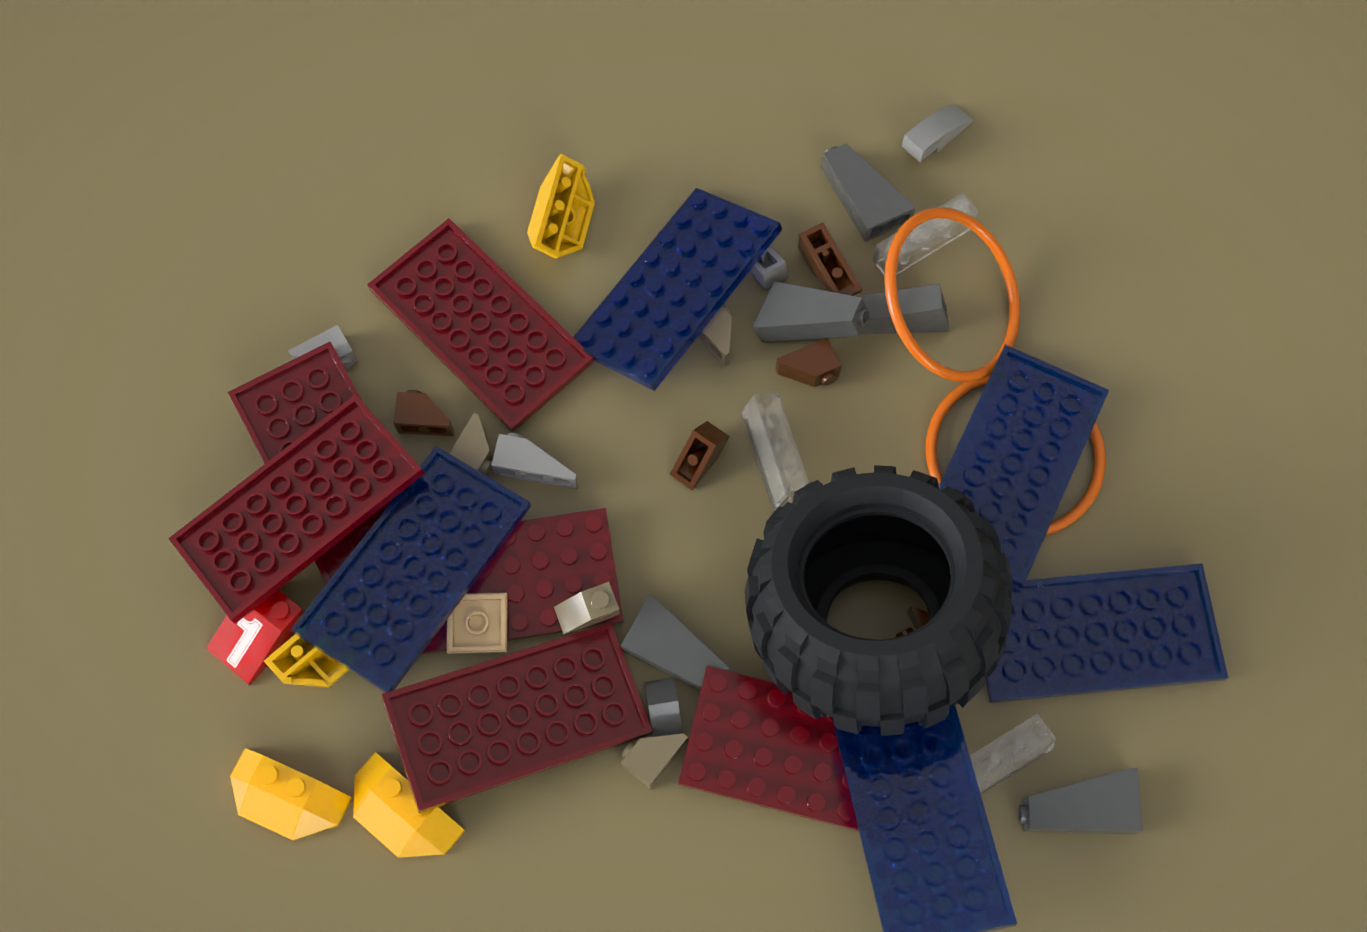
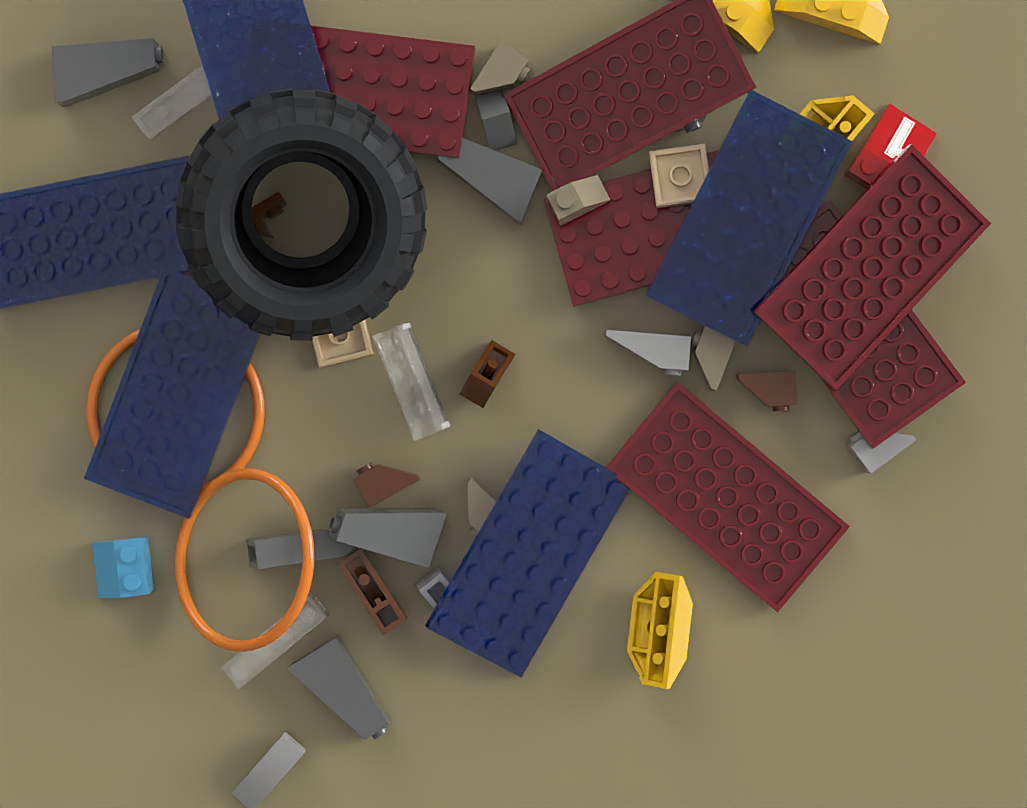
camera: 170 degrees right, 20 degrees up
(1069, 312) = (123, 567): none -> dark azure slope

